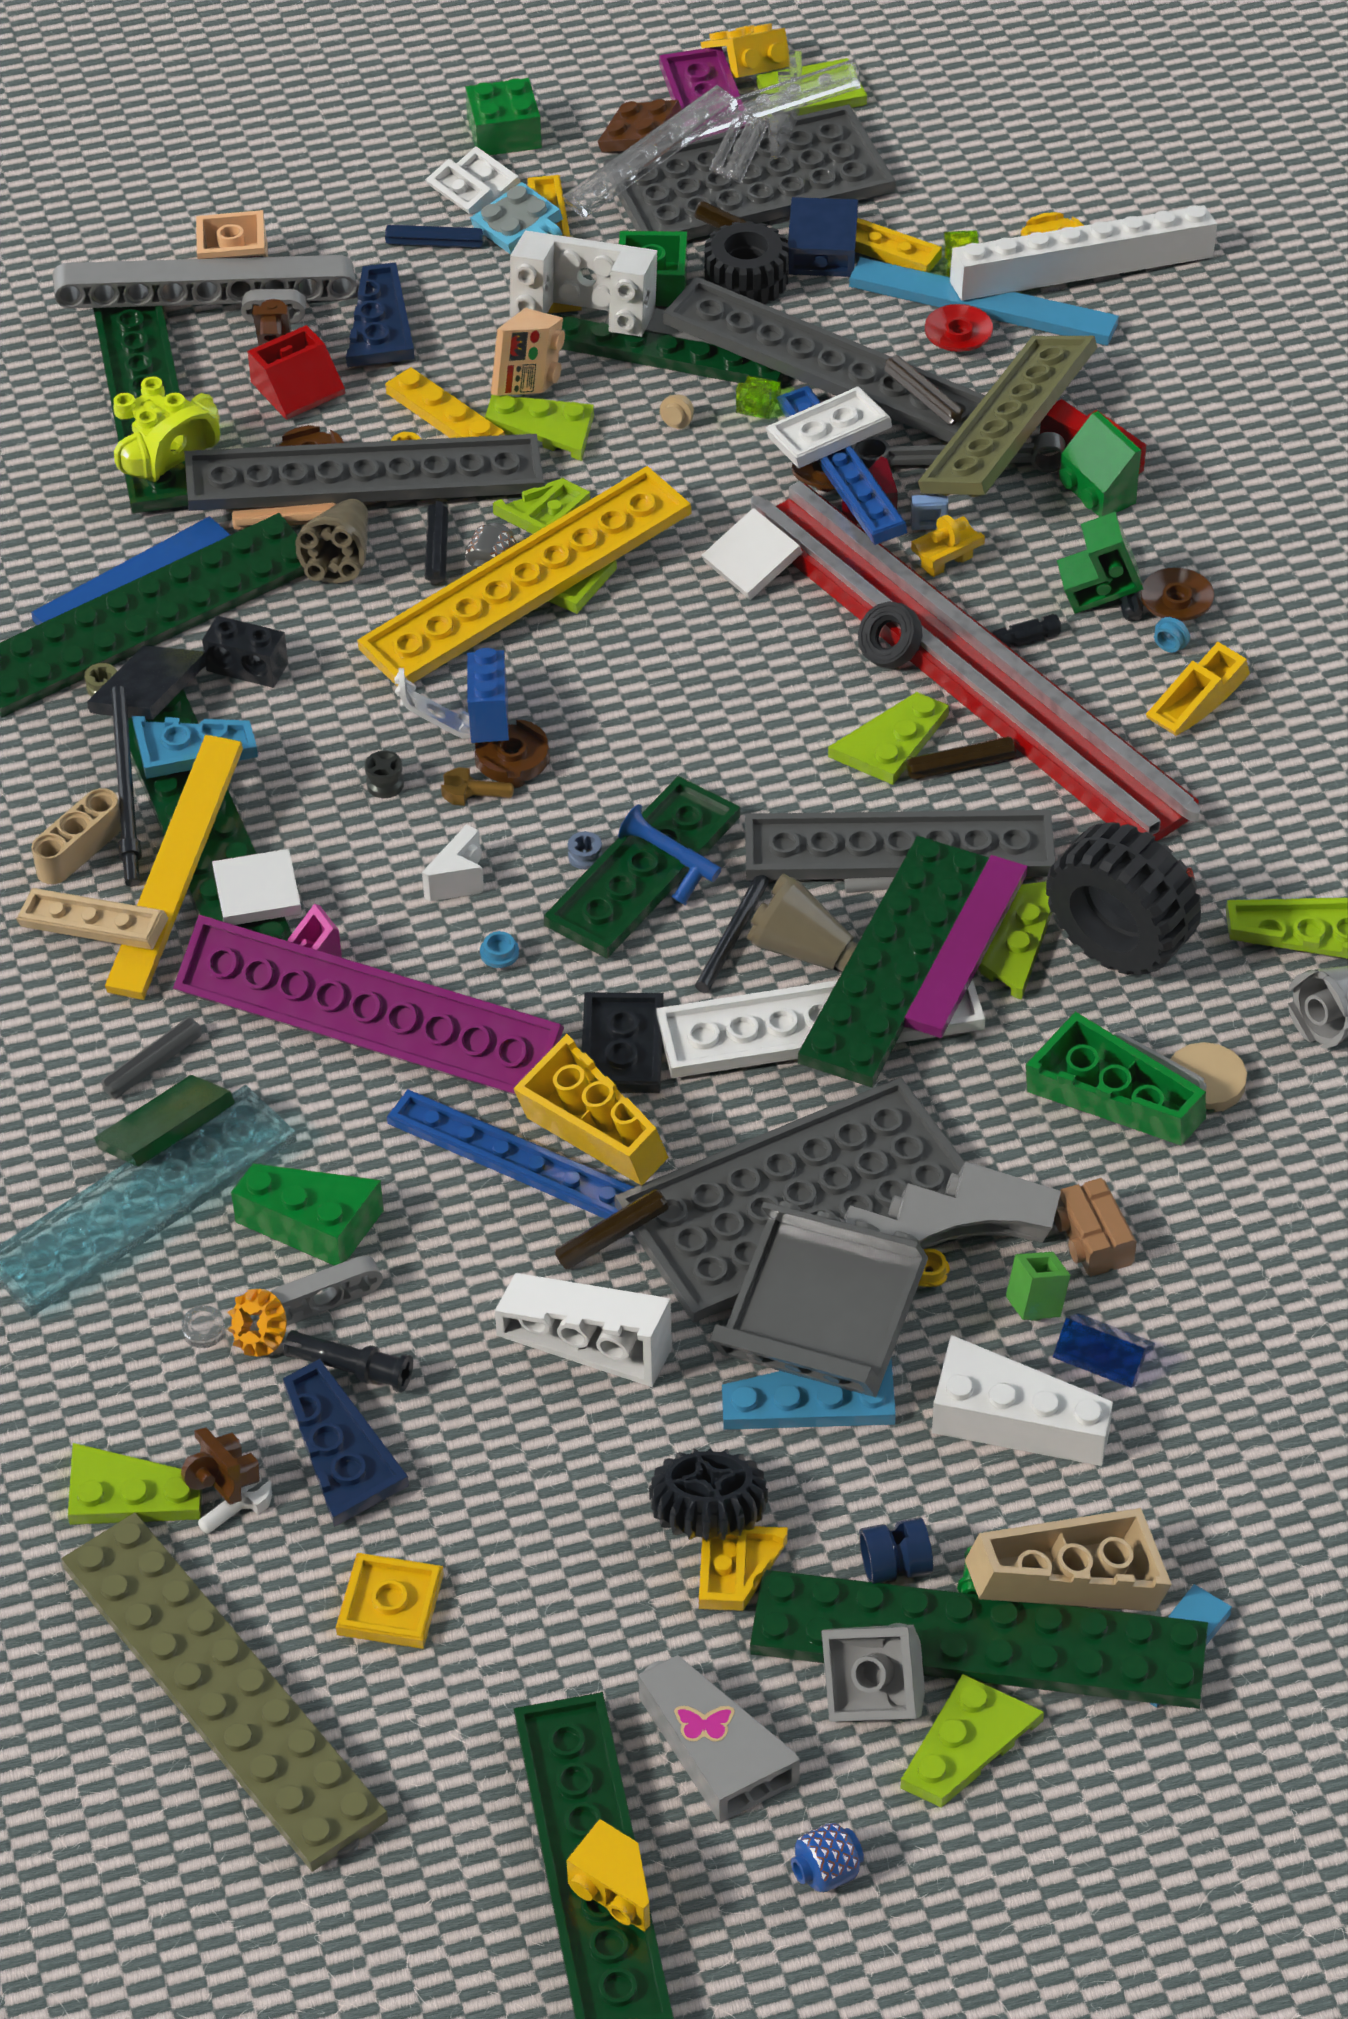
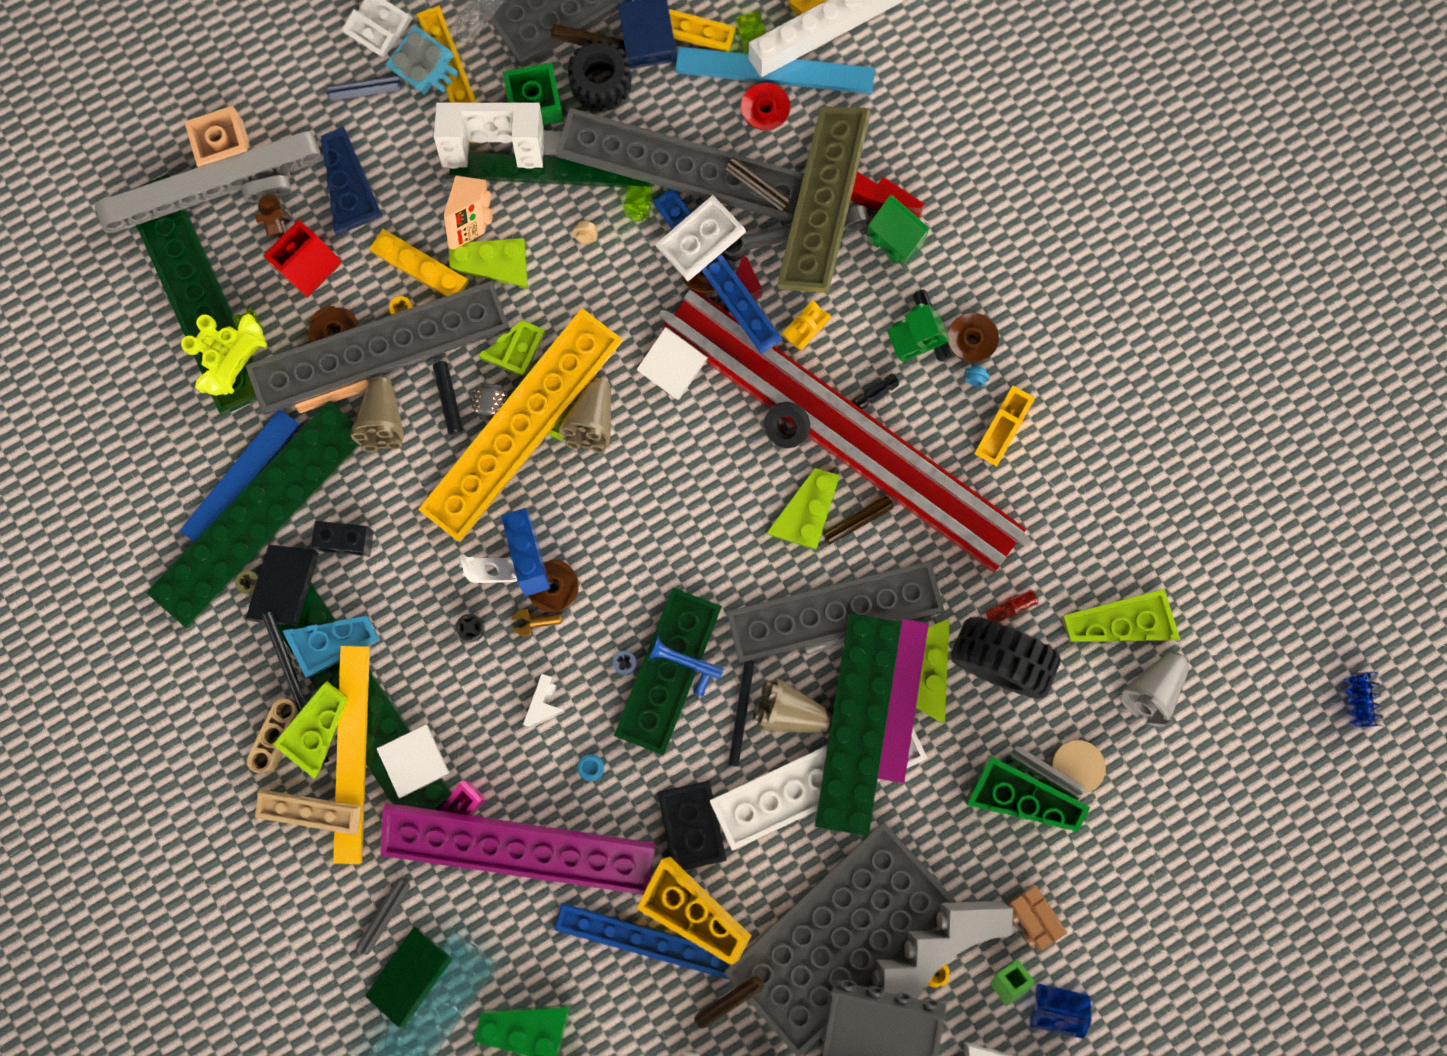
camera: 15 degrees left, 30 degrees up
(135, 818) = (313, 729): none -> lime wing
(617, 587) = (589, 418): none -> dark tan cone
(926, 510) = (783, 297): light blue tile -> none

